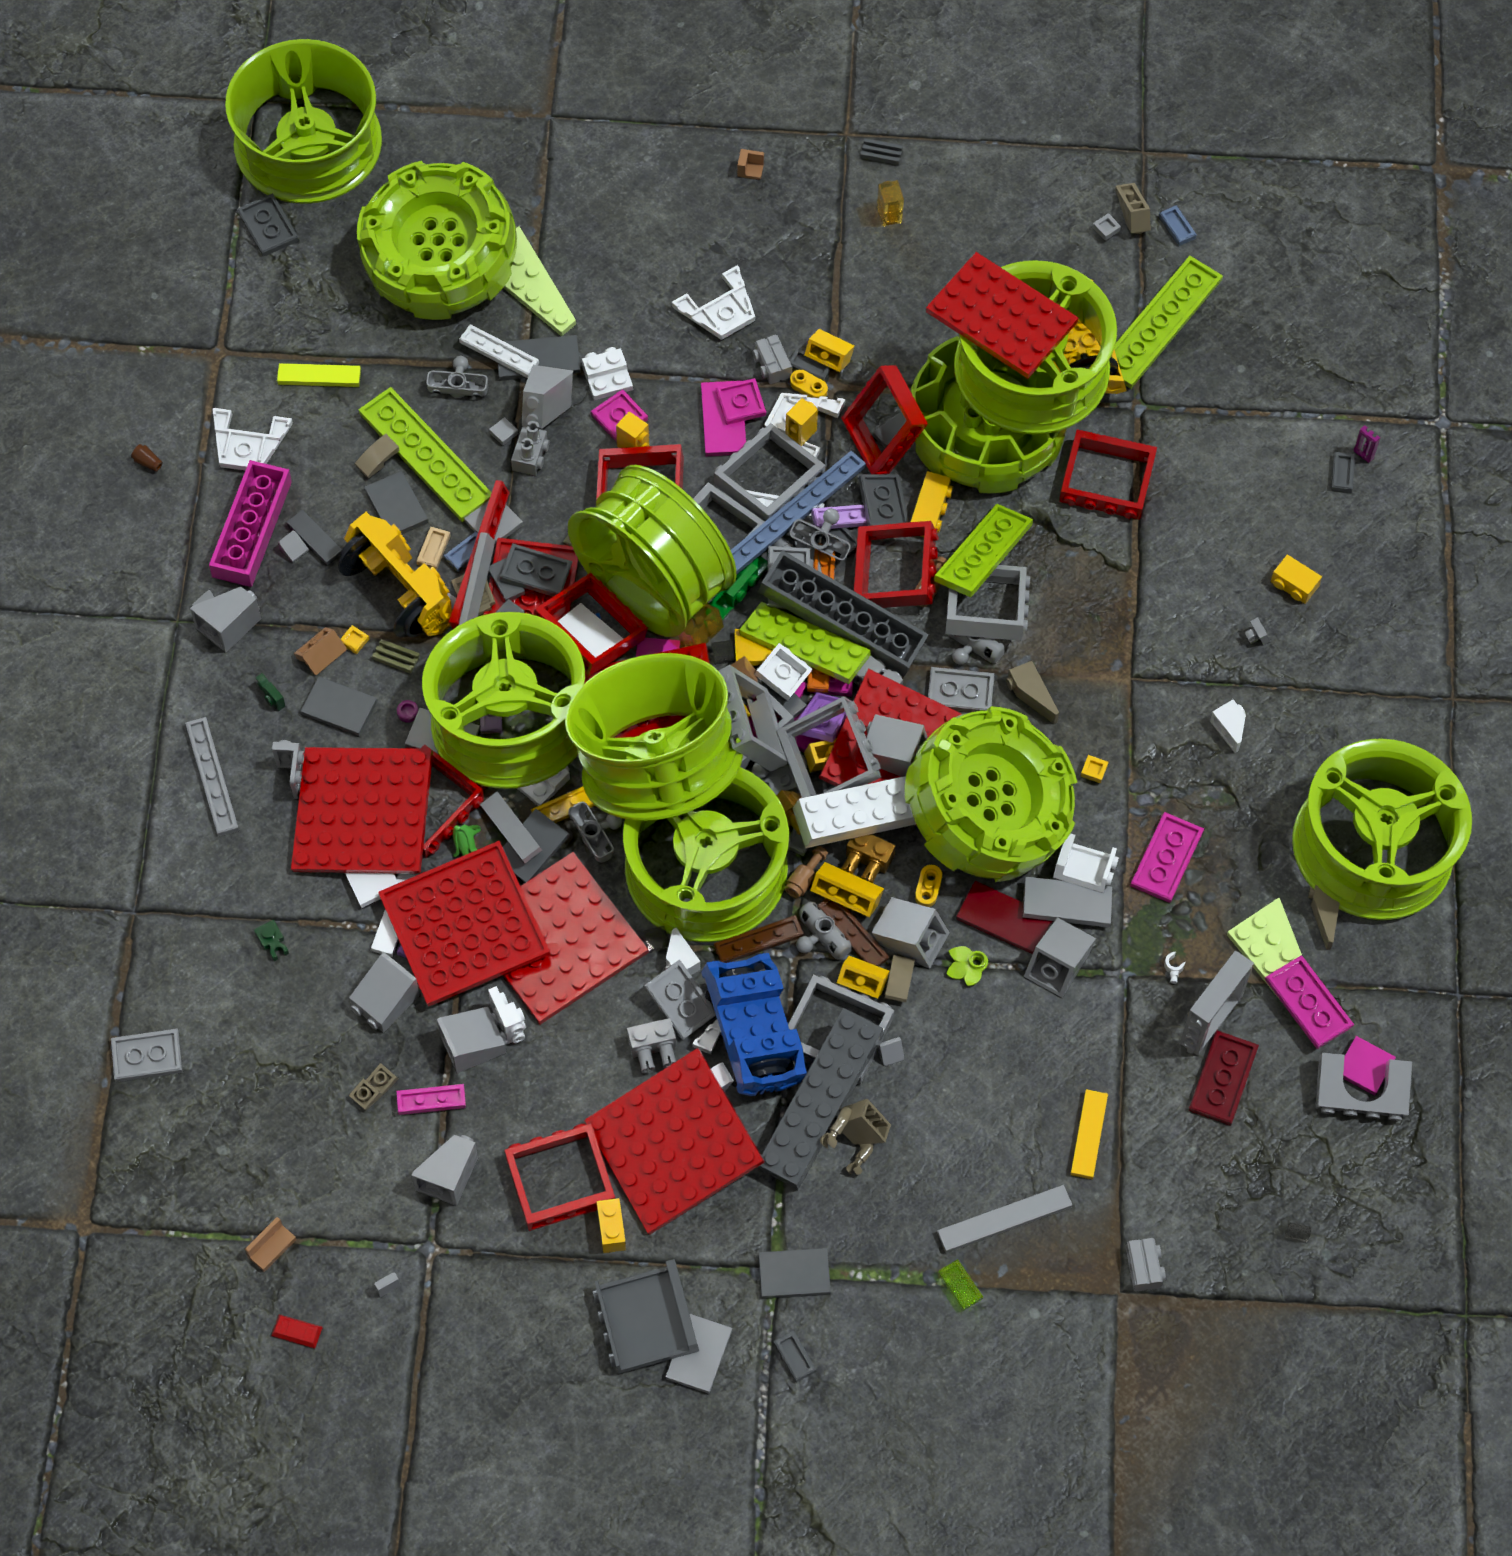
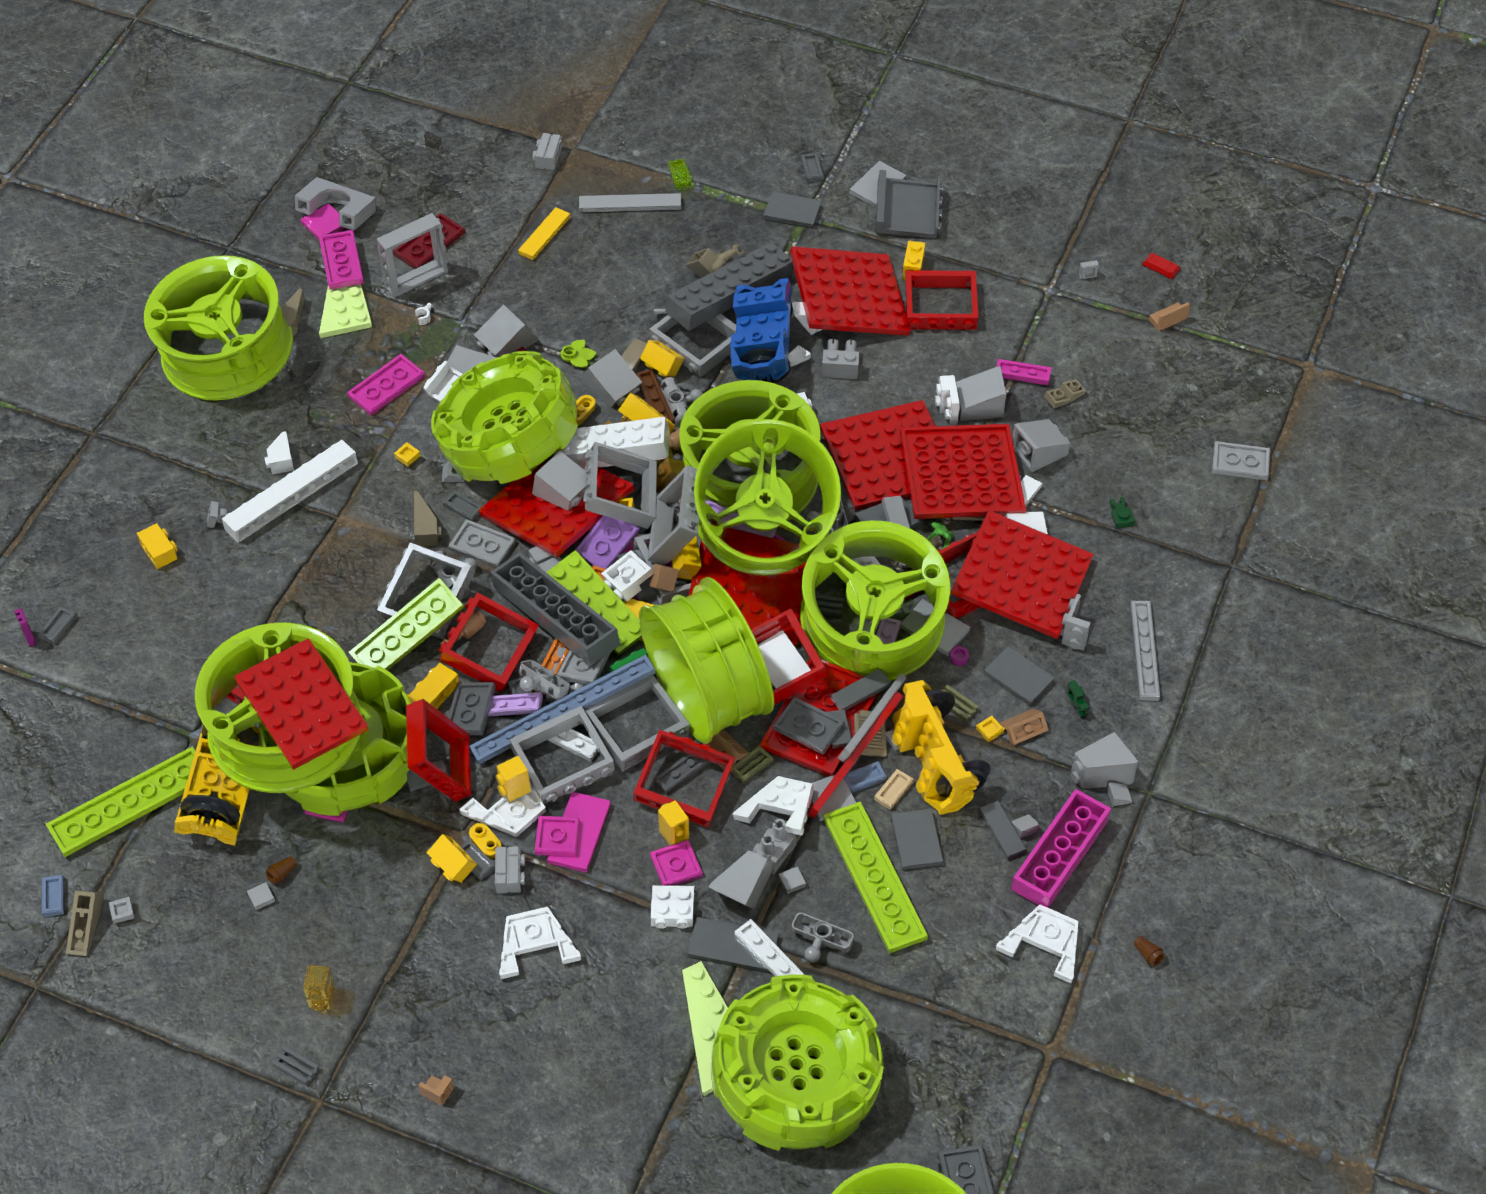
camera: 160 degrees left, 10 degrees down
(319, 375) = (956, 991): neon yellow tile -> none
(374, 457) = (922, 882): dark tan slope -> none
(447, 1170) = (1025, 316): light grey slope -> none
(534, 499) = (780, 796): none -> white wing
(680, 999) = (809, 379): light grey tile -> none
(1195, 684) = (289, 491): none -> white brick

